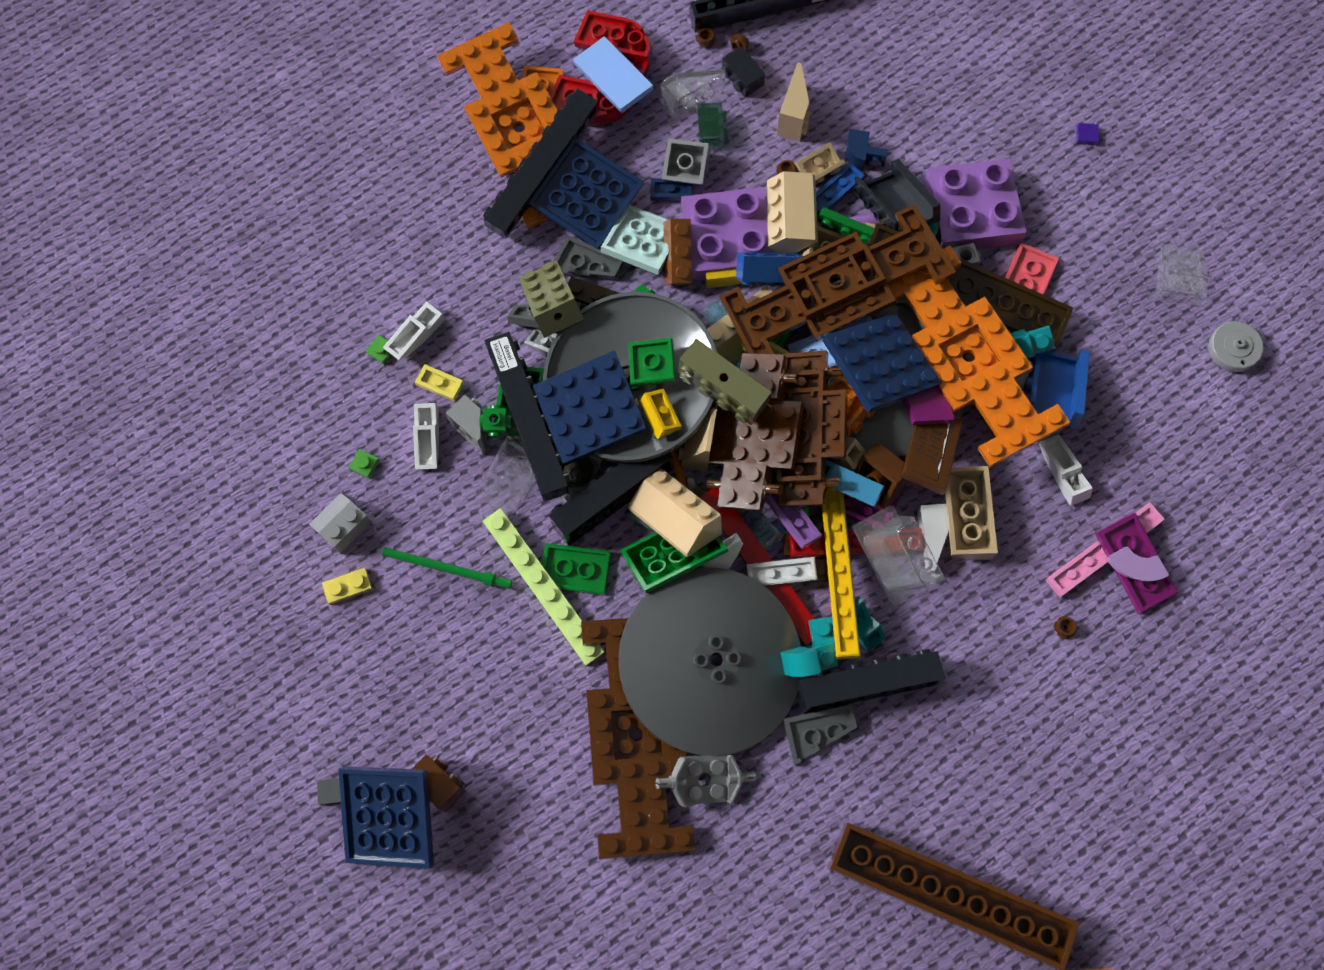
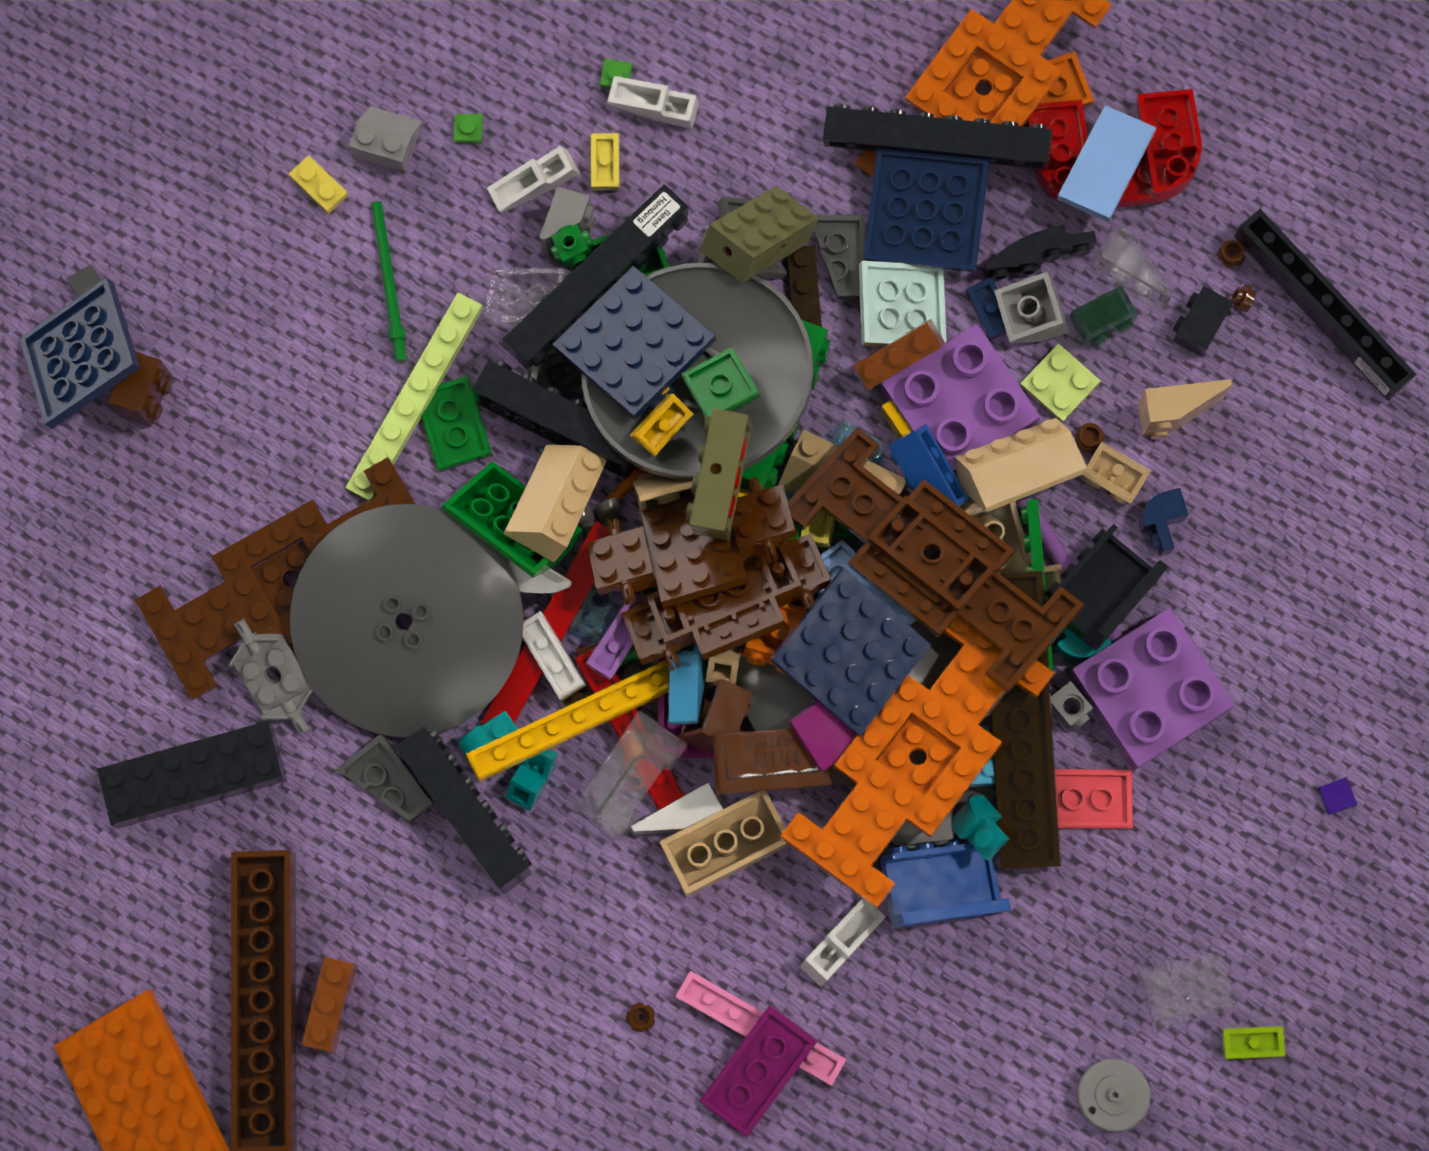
camera: 65 degrees right, 5 degrees up
(646, 143) = (1028, 252): none -> black slope
(741, 170) = (1060, 383): none -> yellowish green plate
(753, 876) = (191, 774): none -> black brick
(809, 661) = (450, 726): teal brick -> none
(837, 187) = (1090, 508): blue plate -> none
(974, 846) = (328, 1003): none -> dark orange arch
(1137, 567) = (748, 1070): lavender tile -> none
(1230, 250) = (1253, 1042): none -> lime plate

